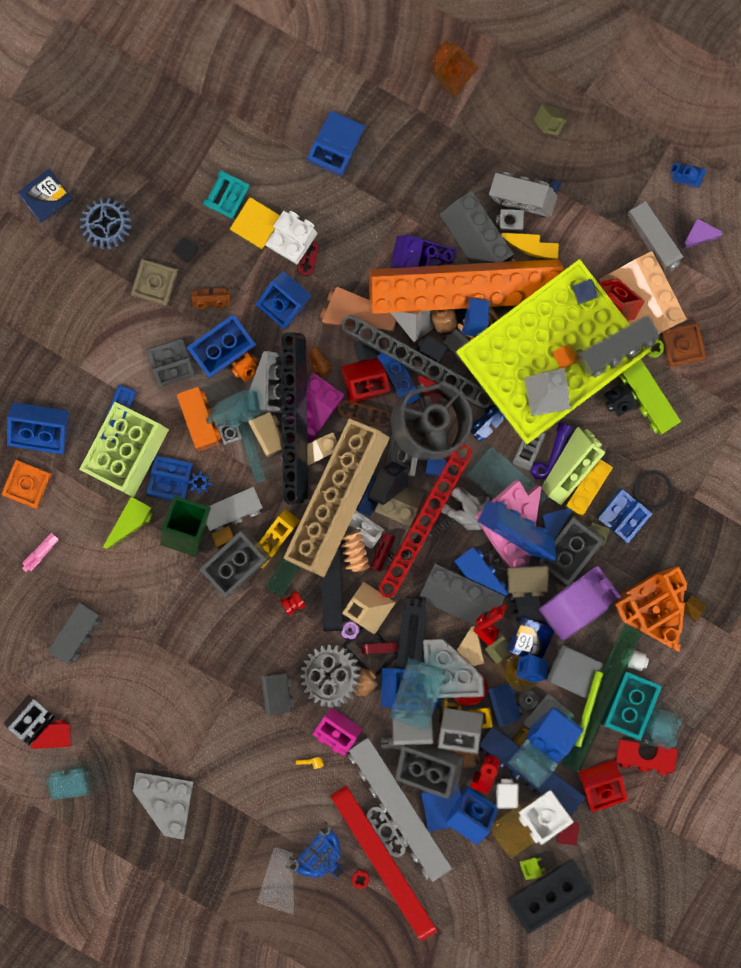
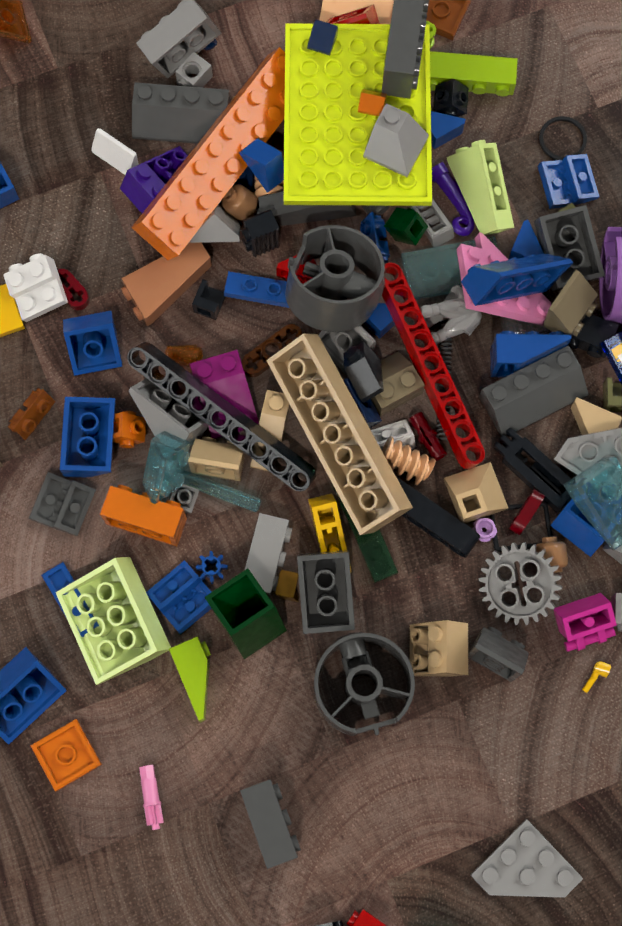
camera: 55 degrees left, 10 degrees down
(208, 613) = (357, 662): none -> dark grey animal
(253, 656) = (439, 648): none -> tan slope
(292, 603) = (413, 565): red wheel -> none
(365, 380) = (240, 321): red slope -> none
(407, 359) = (247, 257): dark grey beam -> none
(418, 213) = (113, 152): none -> white slope
(484, 626) = (580, 382): red bracket -> none
(508, 437) = (406, 226): none -> dark green brick
(531, 246) = (235, 72): yellow slope -> none
(588, 488) = (519, 191): yellow brick -> none
(596, 408) = (445, 128): none -> blue slope

